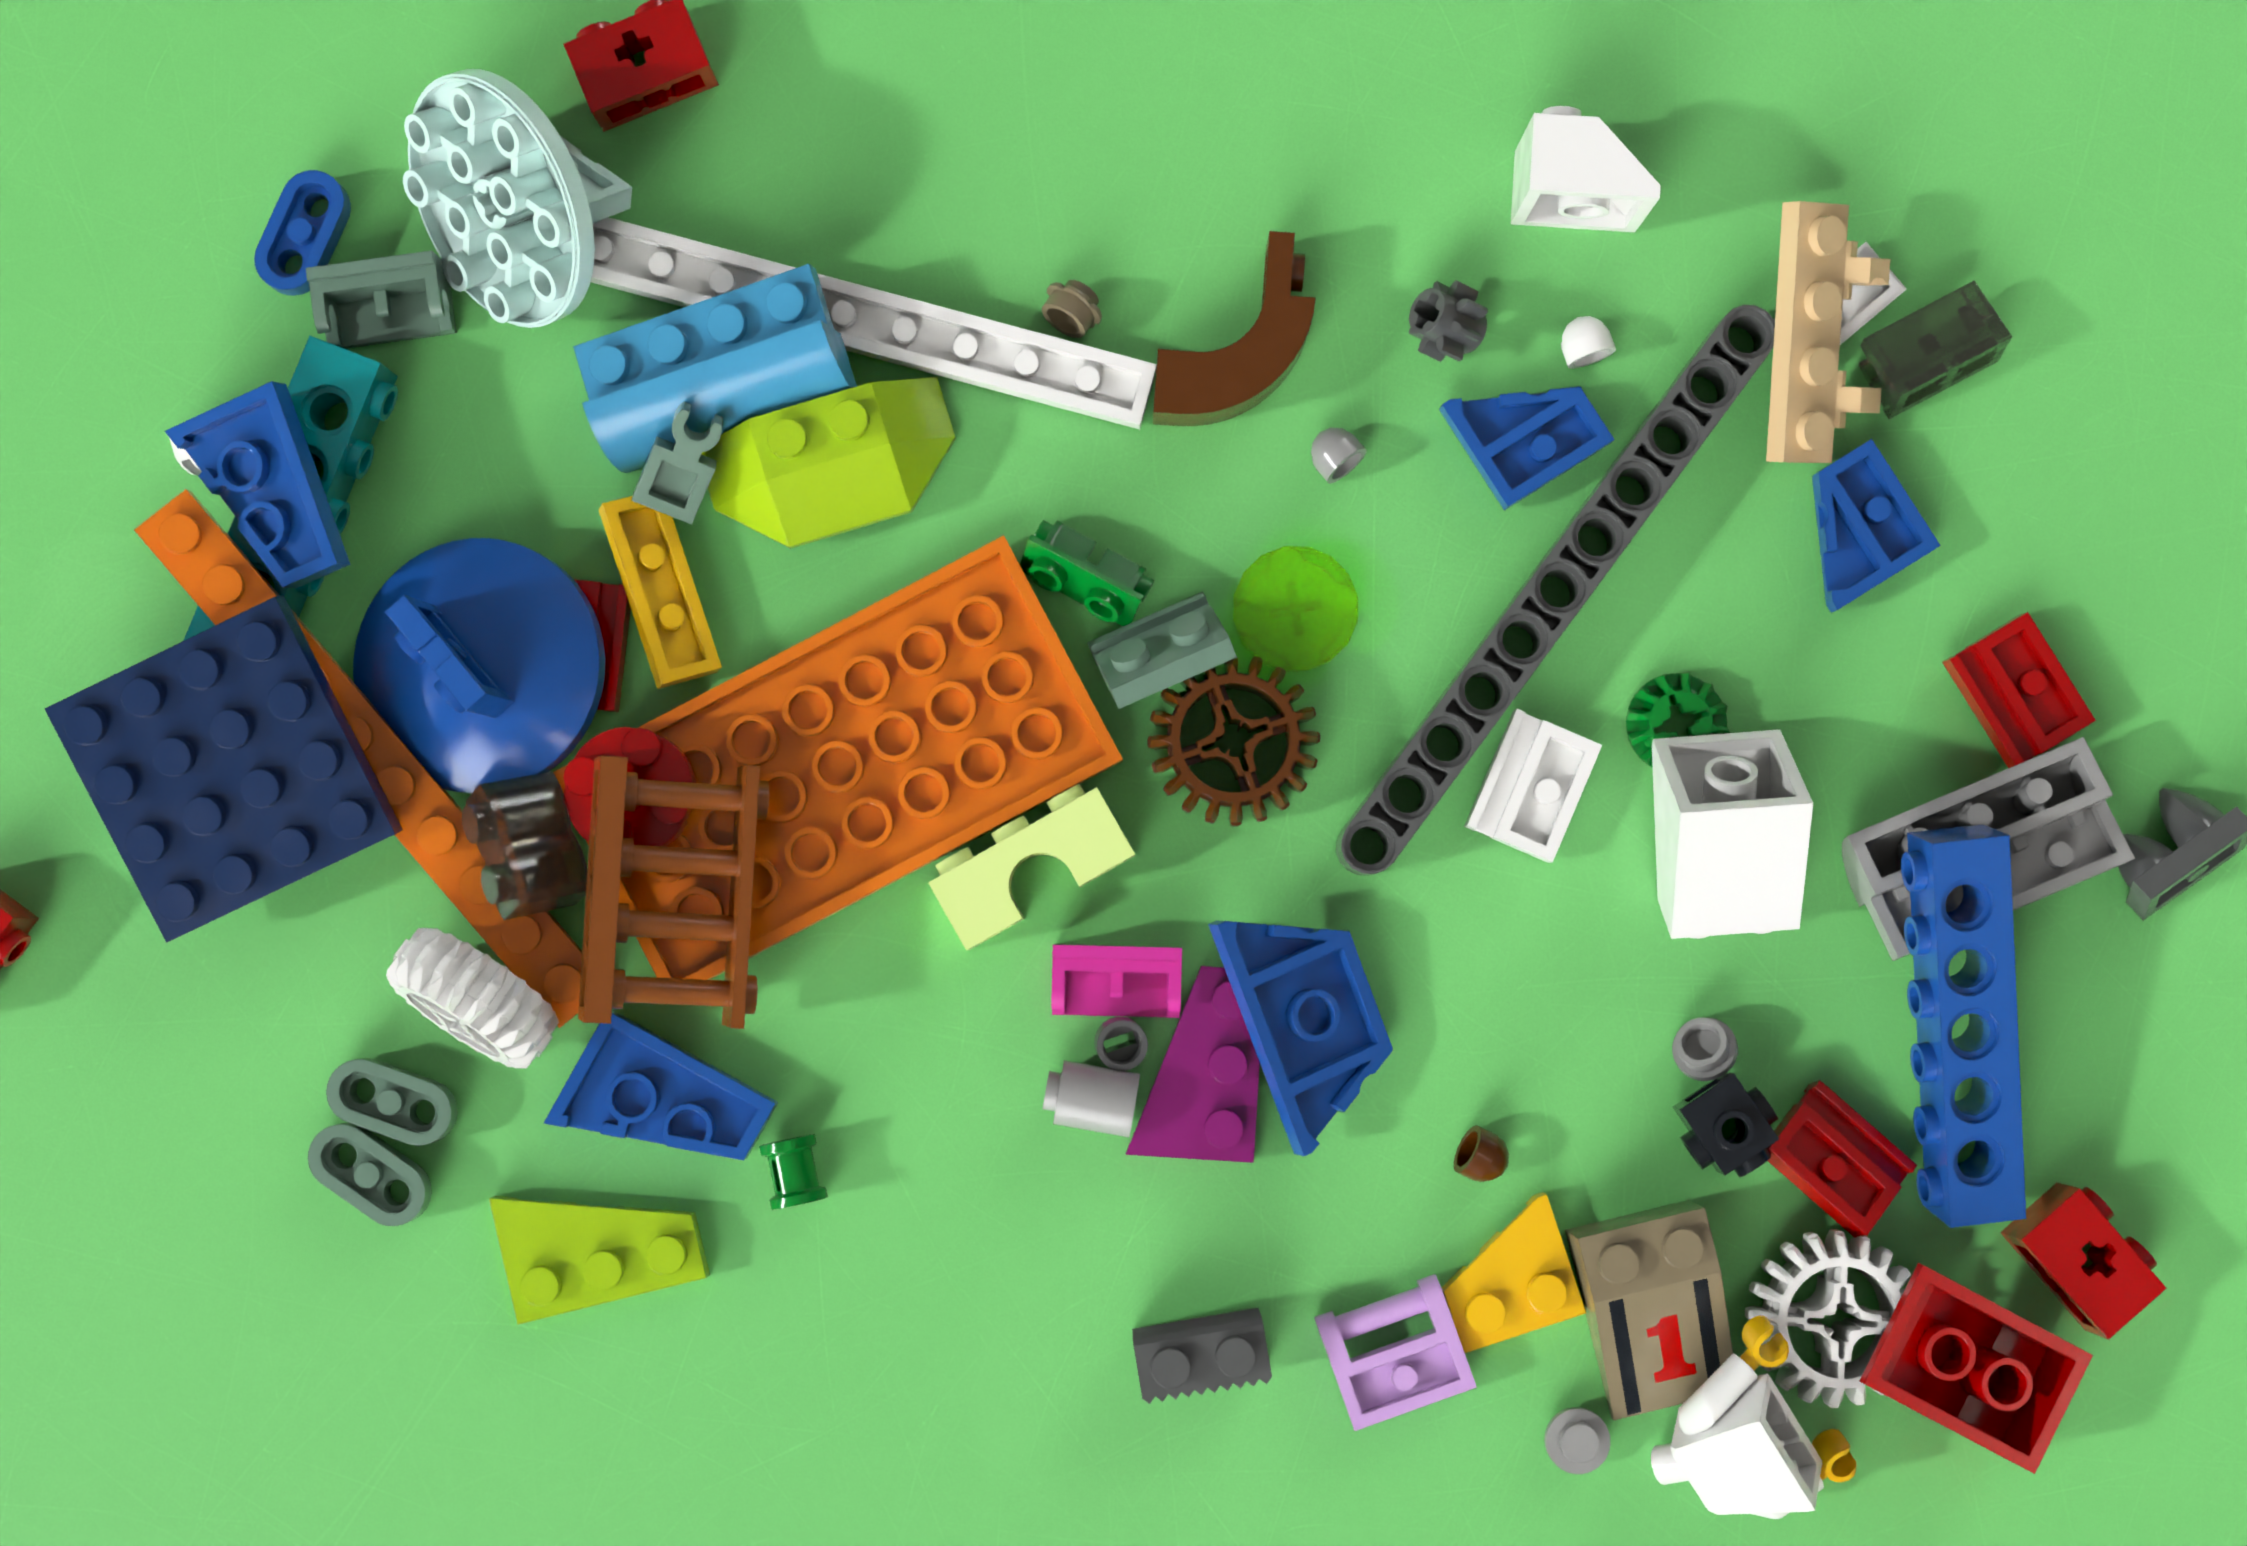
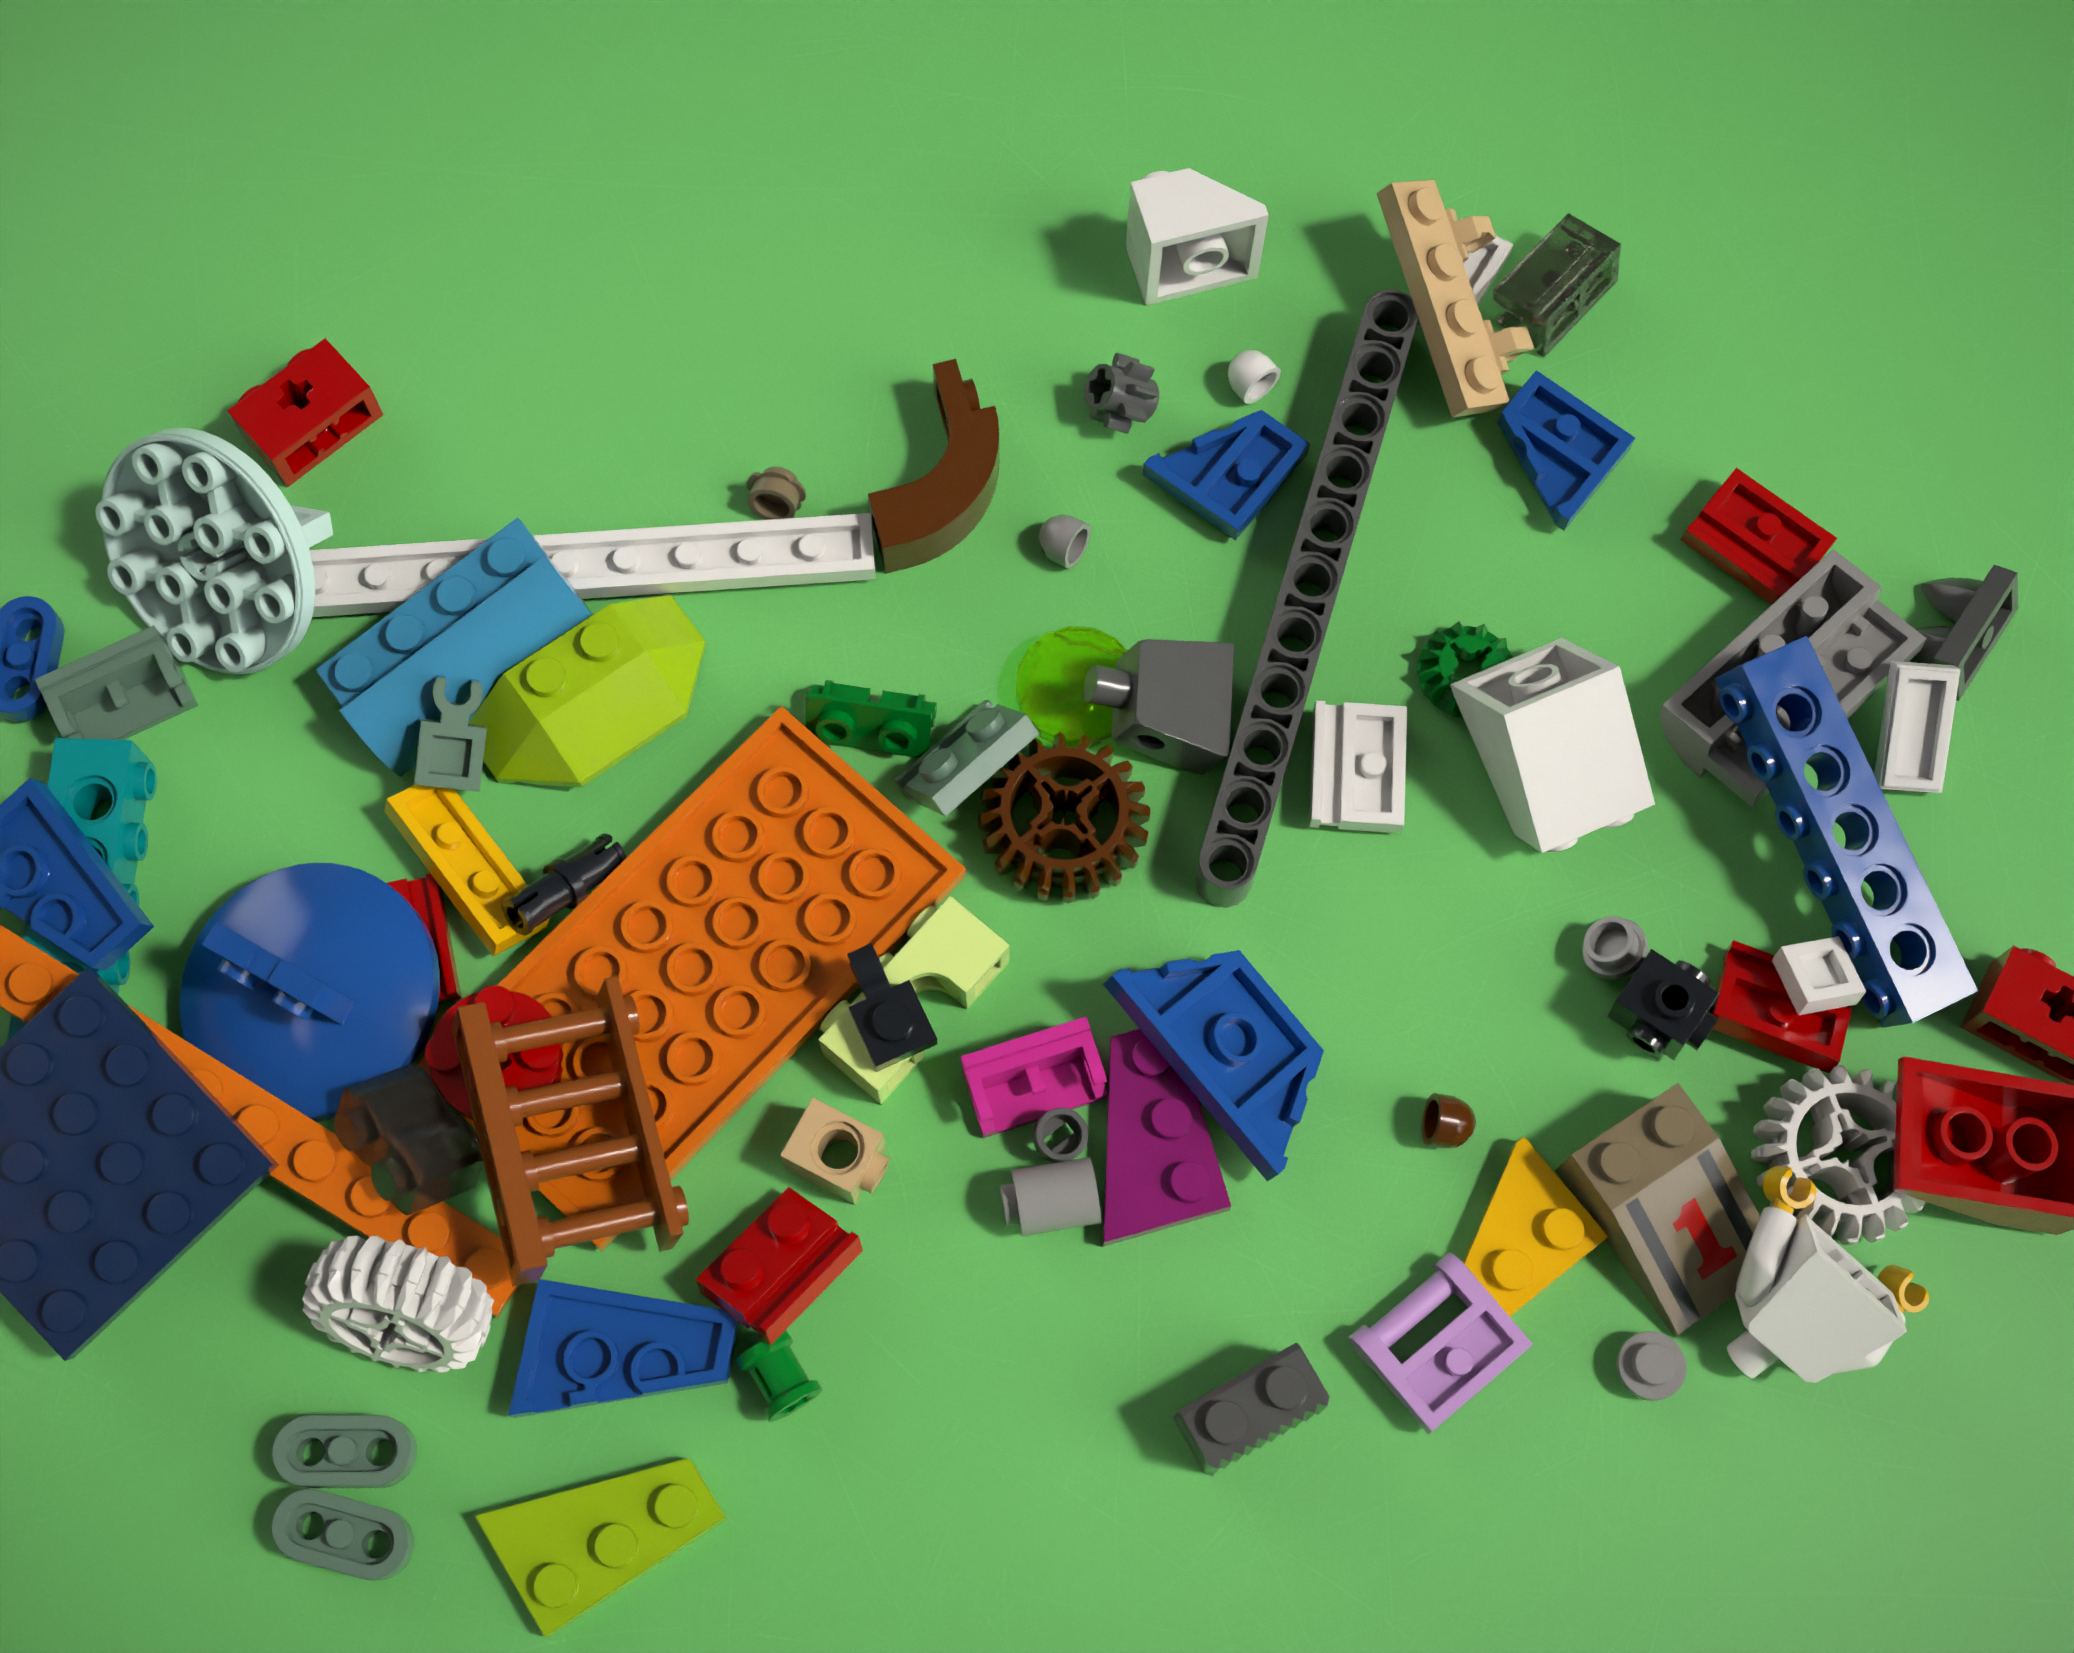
camera: 20 degrees left, 15 degrees down
(743, 643) = (562, 884): none -> black pin
(825, 1074) = (779, 1265): none -> red plate
(882, 983) = (819, 1128): none -> tan brick
(998, 891) = (888, 1018): none -> black plate
(1375, 662) = (1169, 700): none -> dark grey torso
(1882, 1149) = (1818, 975): none -> white plate
(2086, 939) = (1916, 726): none -> white tile

